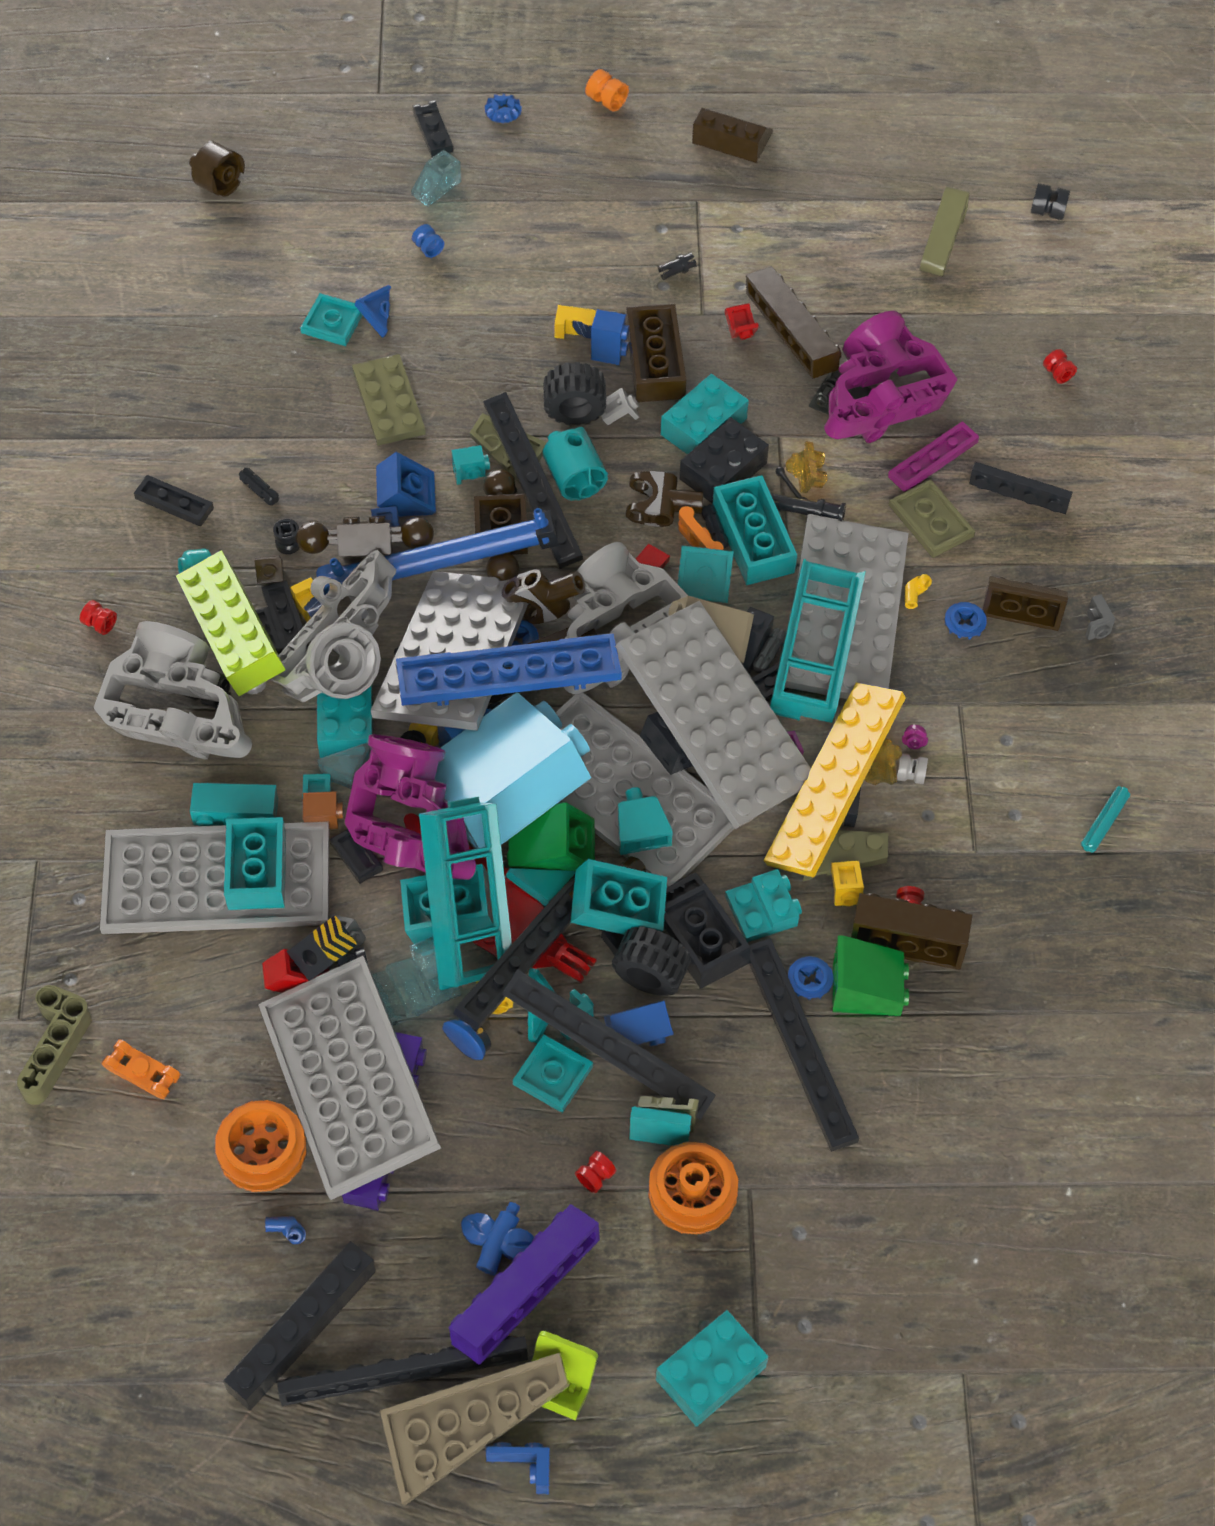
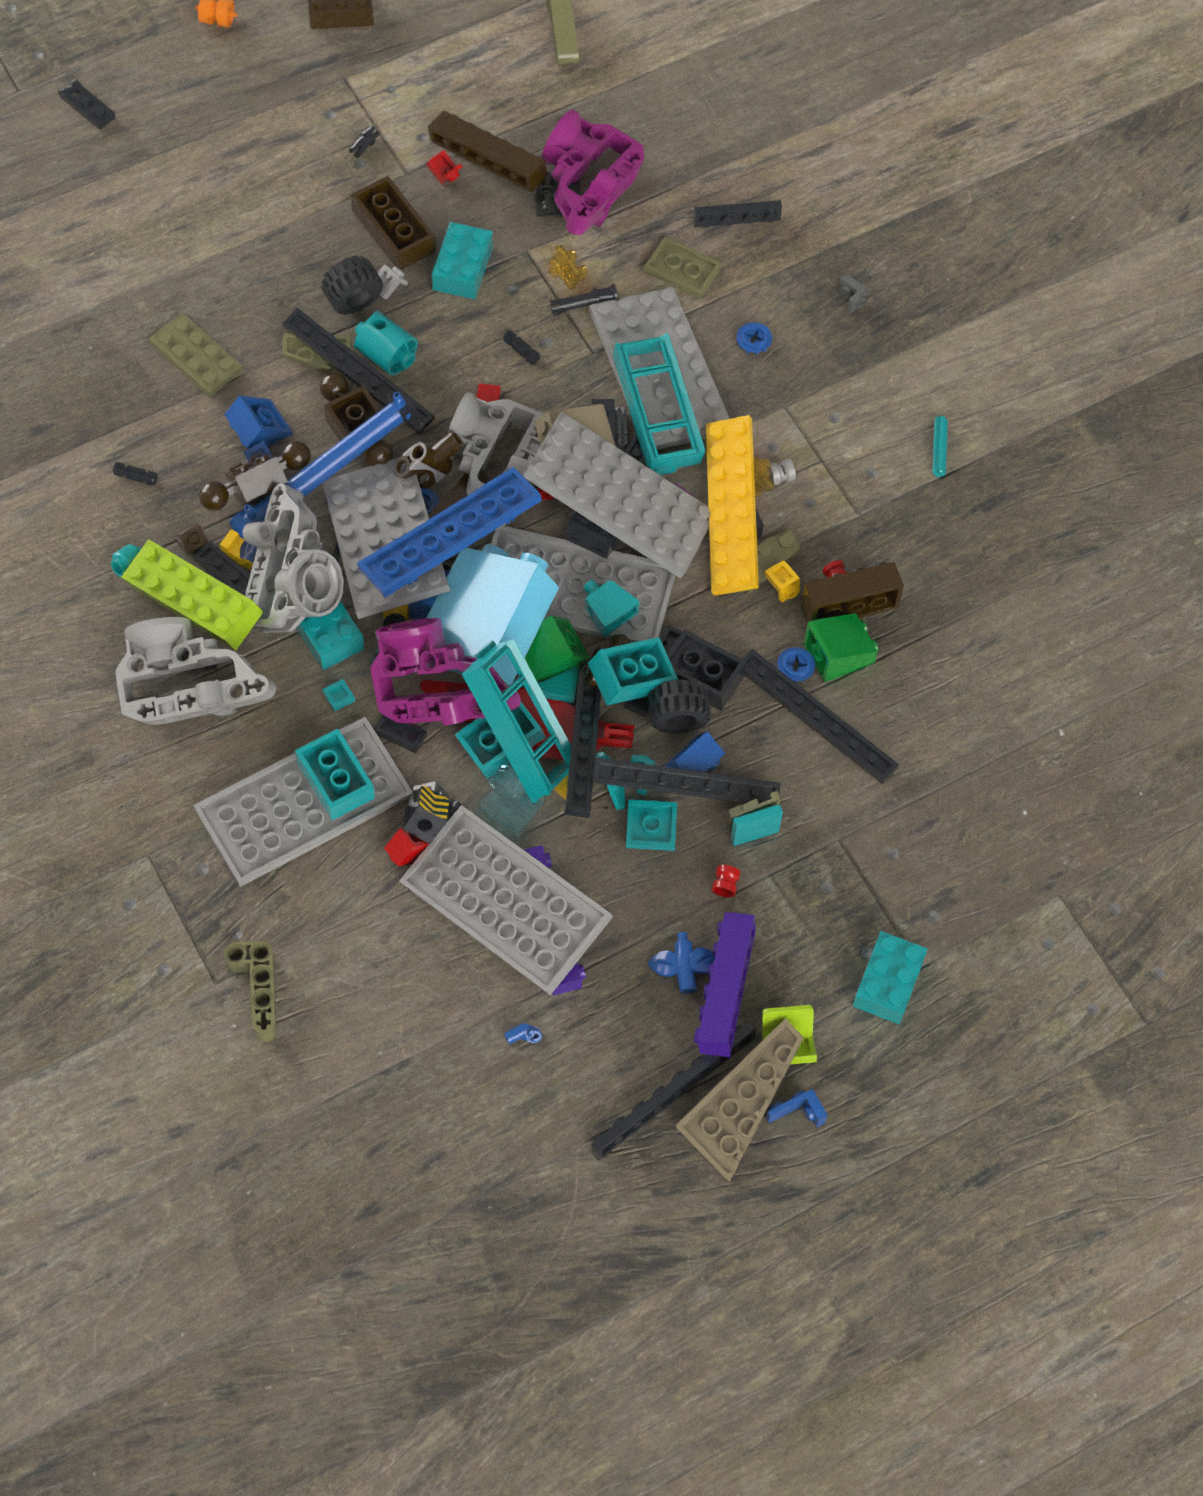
camera: 30 degrees left, 5 degrees up
(101, 619) = (74, 640): red wheel -> none
(141, 1069) = (338, 973): orange plate -> none
(173, 500) = (72, 516): black plate -> none
(217, 802) = (281, 738): teal brick -> none
(269, 1169) = (472, 1004): orange wheel -> none
(285, 536) = (186, 504): black wheel -> none
(299, 1326) = (579, 1097): black brick -> none
(322, 808) = (353, 708): dark orange brick -> none
(331, 319) = (106, 306): teal tile -> none
(344, 764) = (351, 667): clear light blue slope -> none
(376, 309) = (138, 282): blue tile -> none
(428, 241) = (144, 204): blue wheel -> none
(437, 178) = (121, 147): clear light blue slope -> none
(467, 1039) = (574, 828): blue piece -> none
(469, 463) = (297, 380): teal brick -> none
(506, 114) = (141, 67): blue gear -> none
(573, 321) = (311, 223): yellow leg -> none
(609, 337) = (349, 225): blue brick -> none
(663, 499) = (469, 341): dark brown connector -> none
(688, 1163) = (810, 838): orange wheel -> none
(694, 532) = (516, 361): orange plate -> none
(705, 573) = (539, 387): teal tile -> none
(723, 458) = (499, 291): black piece -> none
(754, 530) = (557, 336): teal brick -> none
(764, 906) = (732, 625): teal plate -> none
(780, 471) = (545, 280): black hinge -> none
(915, 588) = (702, 328): yellow arm -> none
(915, 737) = (769, 446): magenta plate -> none
(933, 457) = (657, 217): magenta plate -> none
(1024, 603) = (792, 304): dark brown slope -> none
(1059, 365) = (712, 100): red wheel -> none

